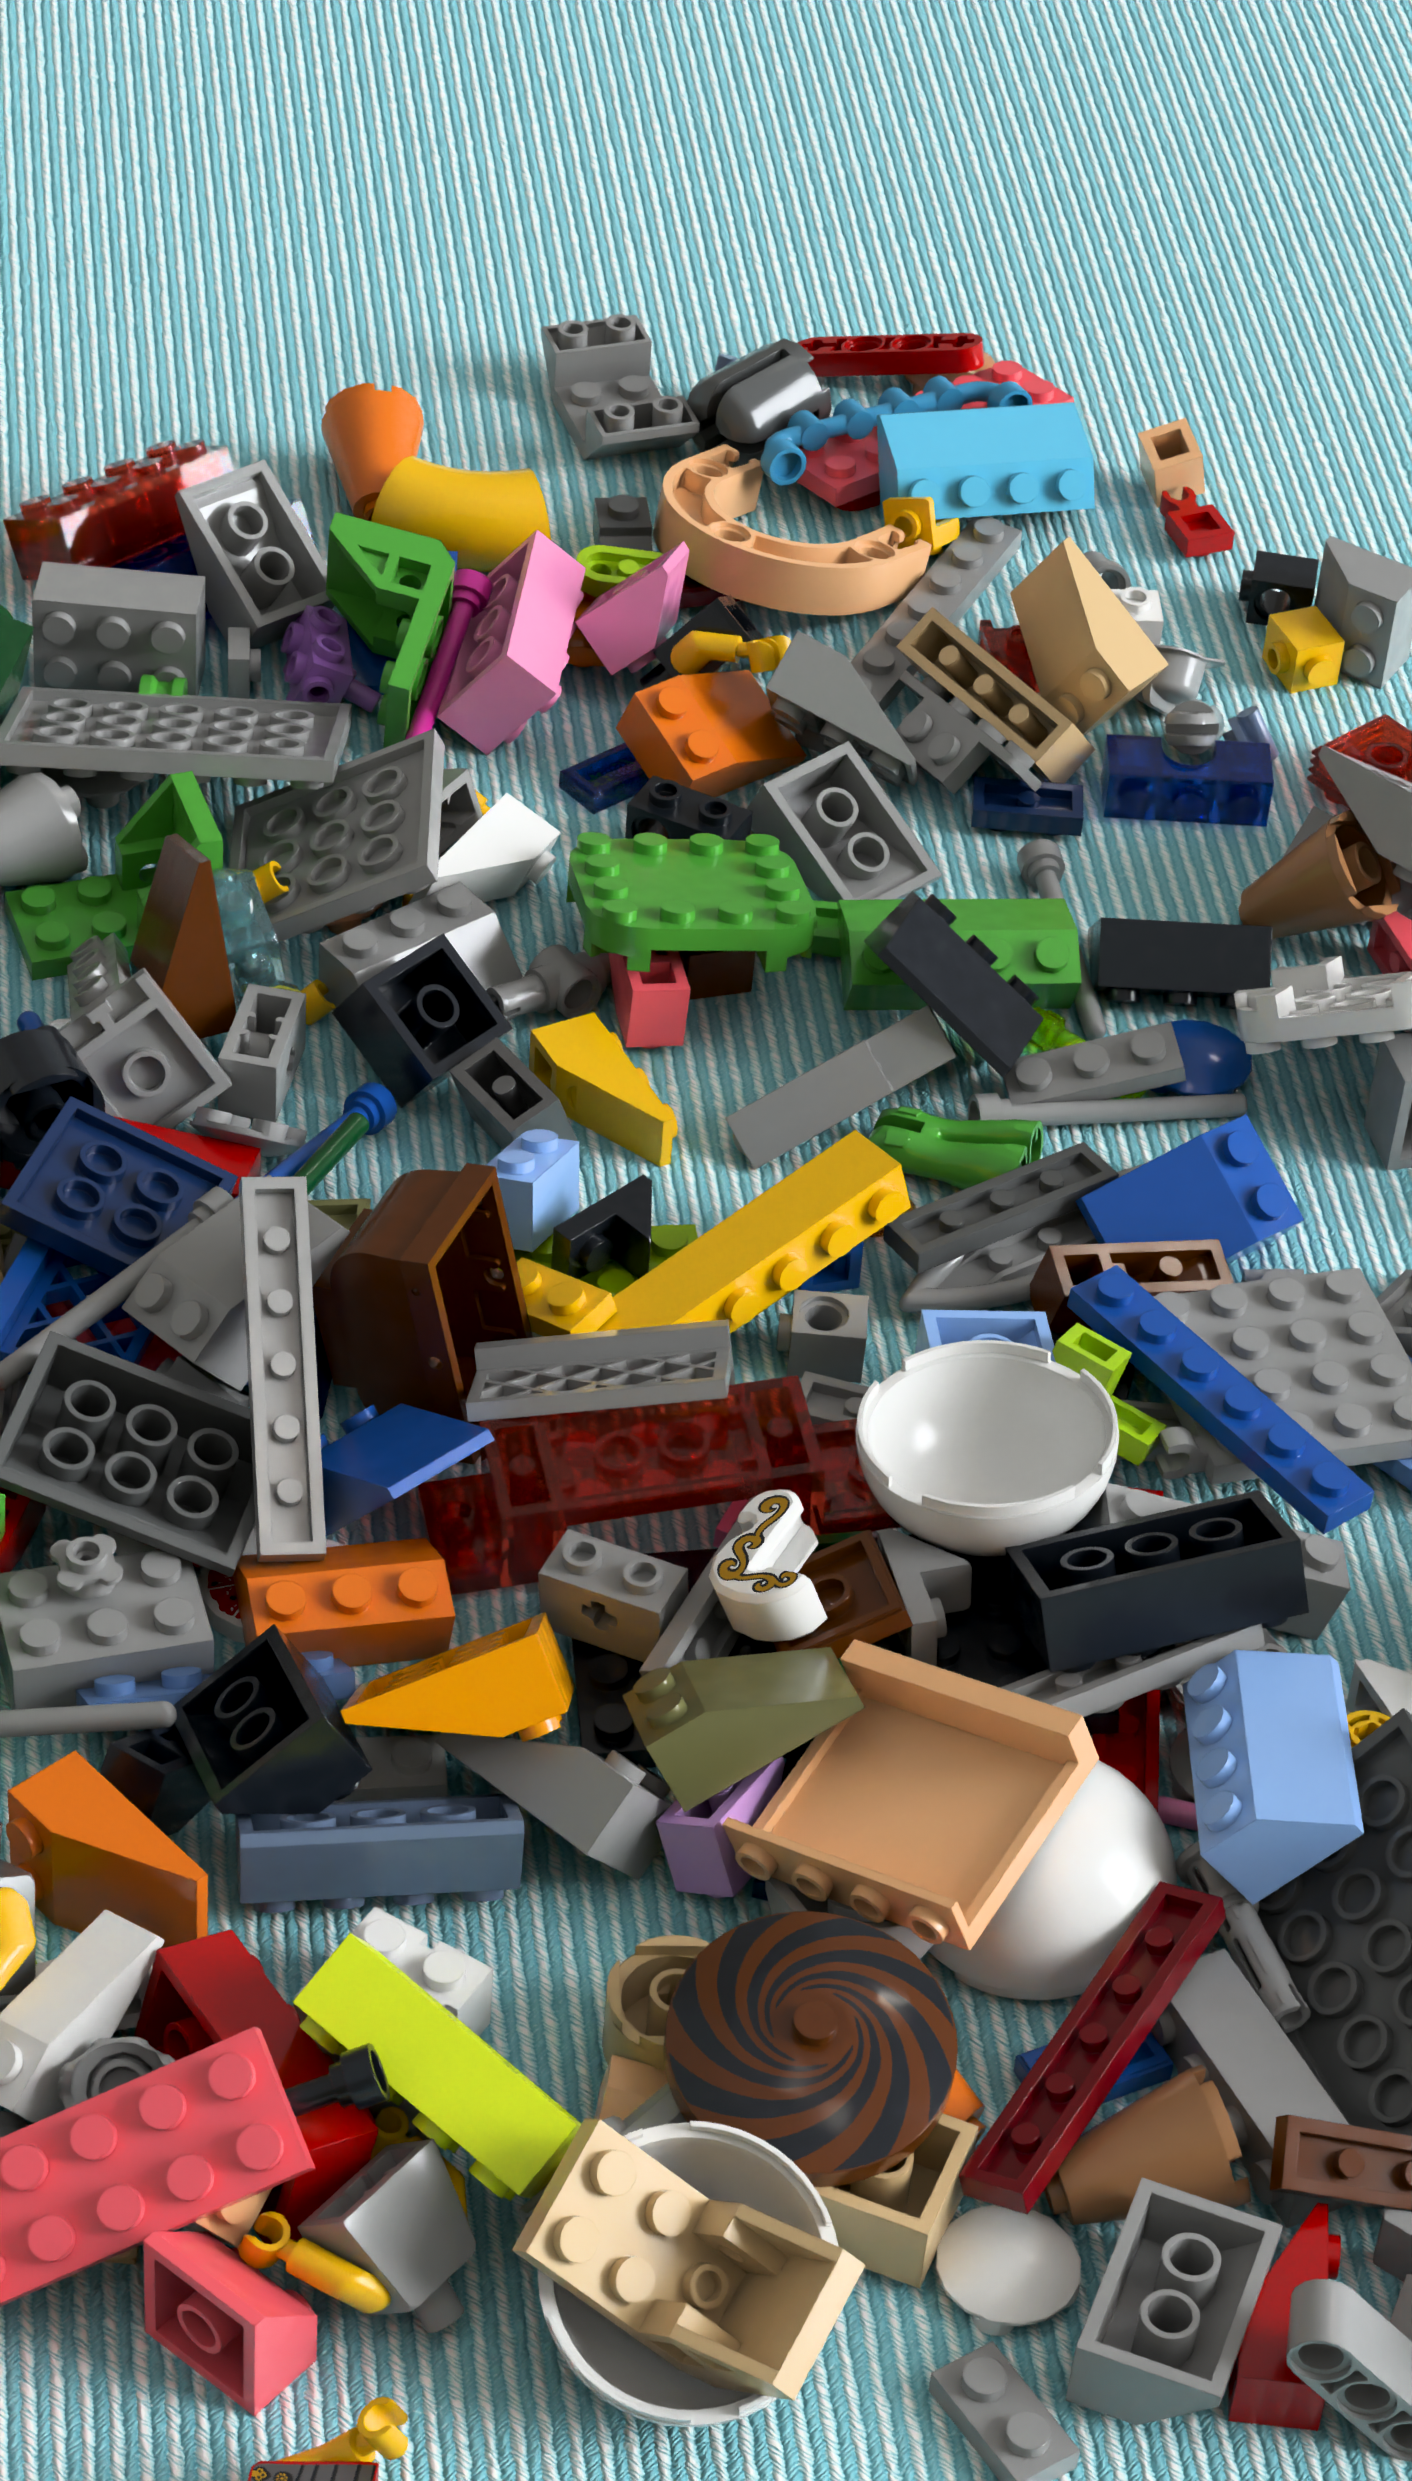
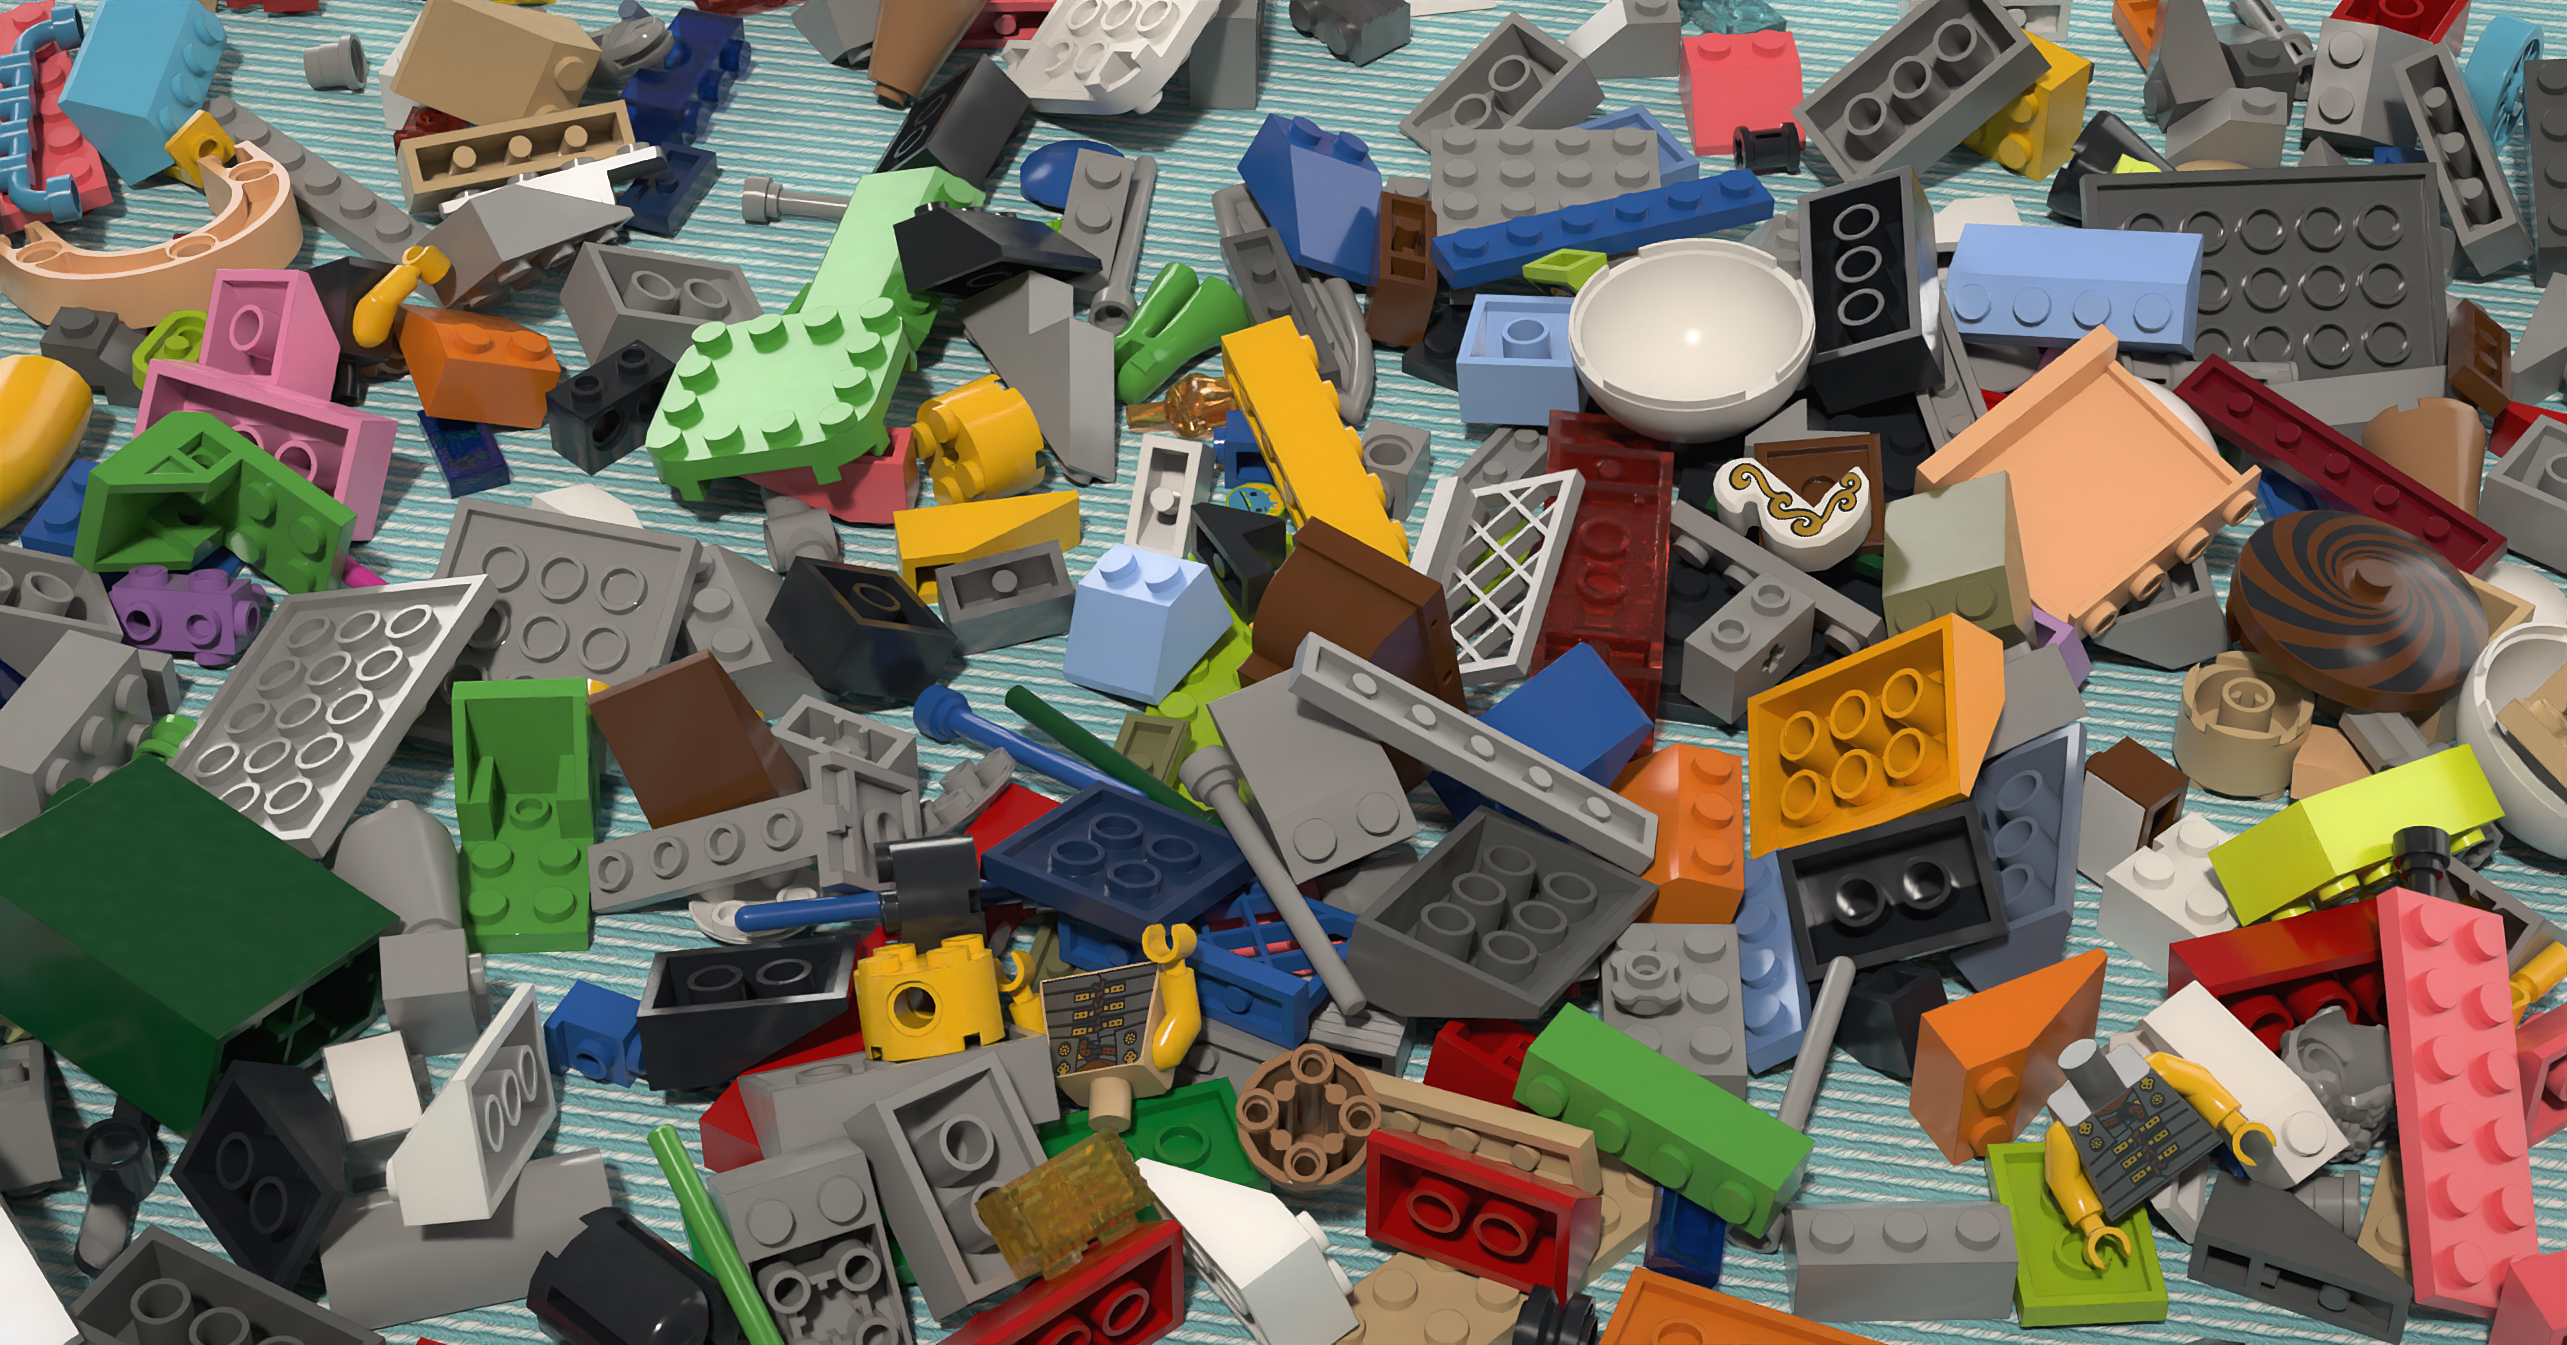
camera: 70 degrees left, 0 degrees up
(478, 1905) = (2125, 805): none -> brick
(710, 1046) = (978, 442): none -> yellow brick
(715, 1184) = (1166, 484): none -> white slope

